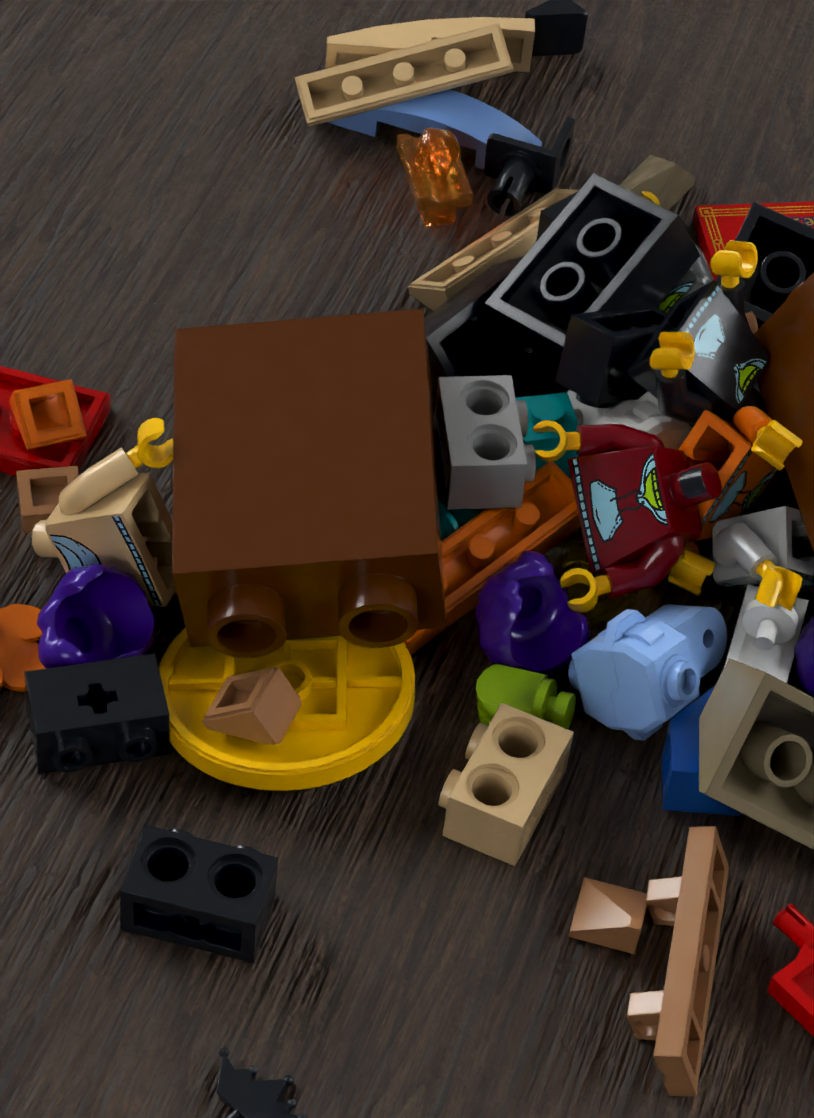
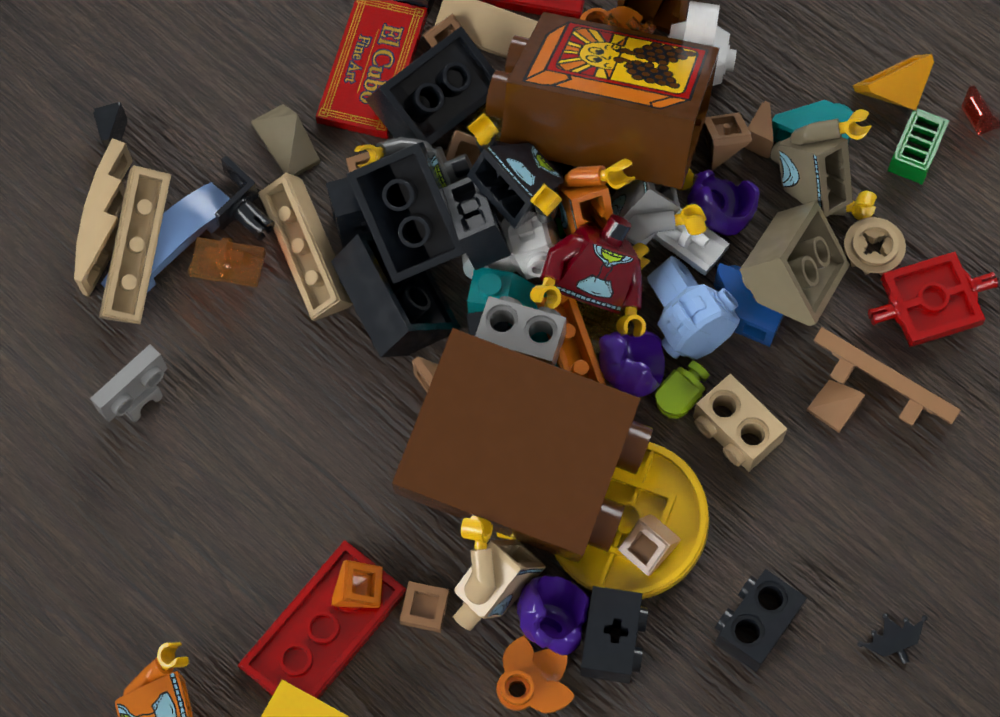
camera: 60 degrees left, 20 degrees up
(213, 120) = (132, 387): none -> light grey plate

